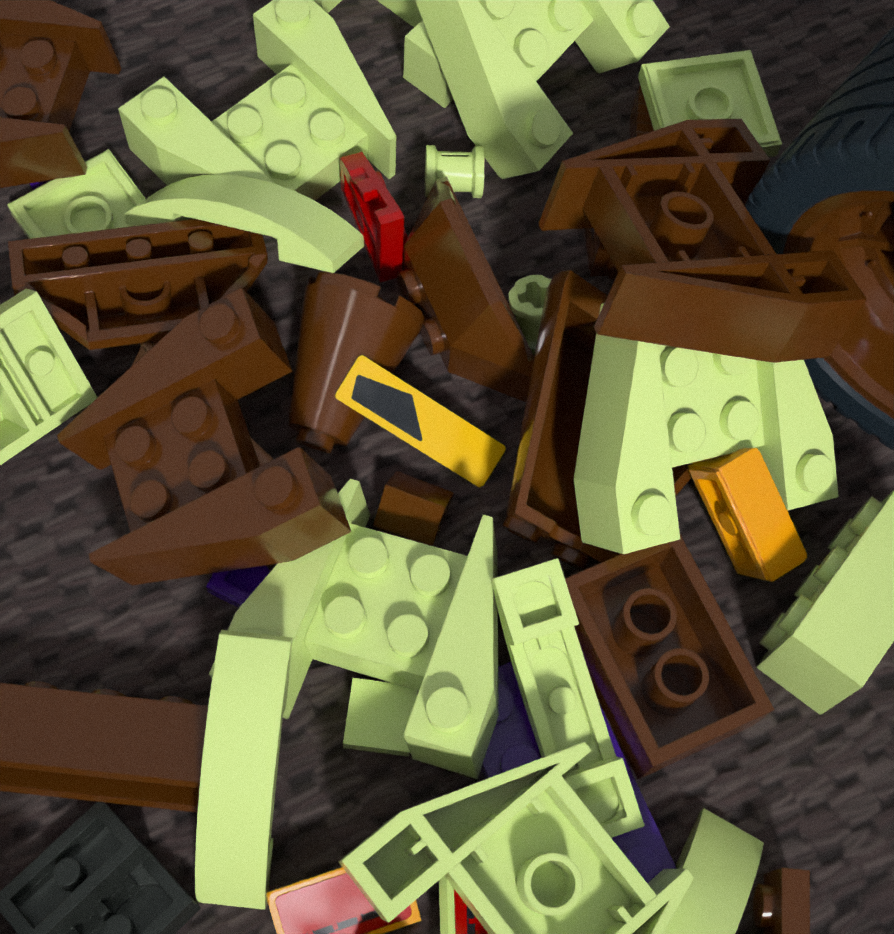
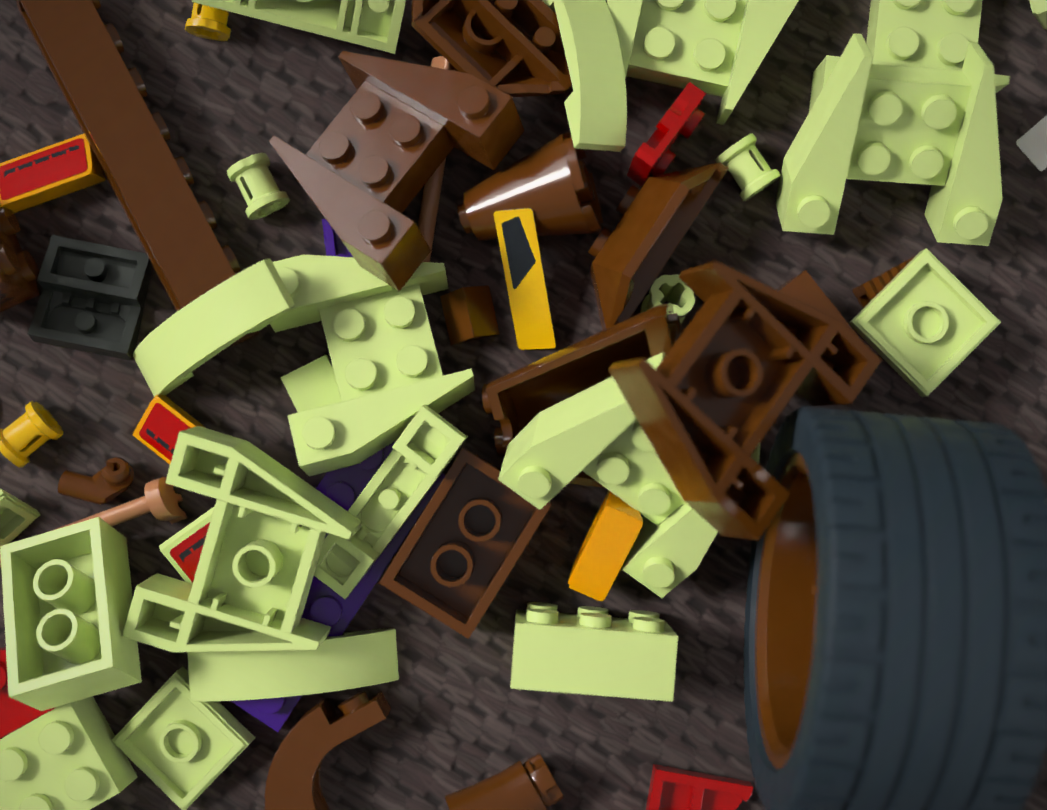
camera: 65 degrees right, 20 degrees up
(120, 627) = (257, 186): none -> yellowish green bush

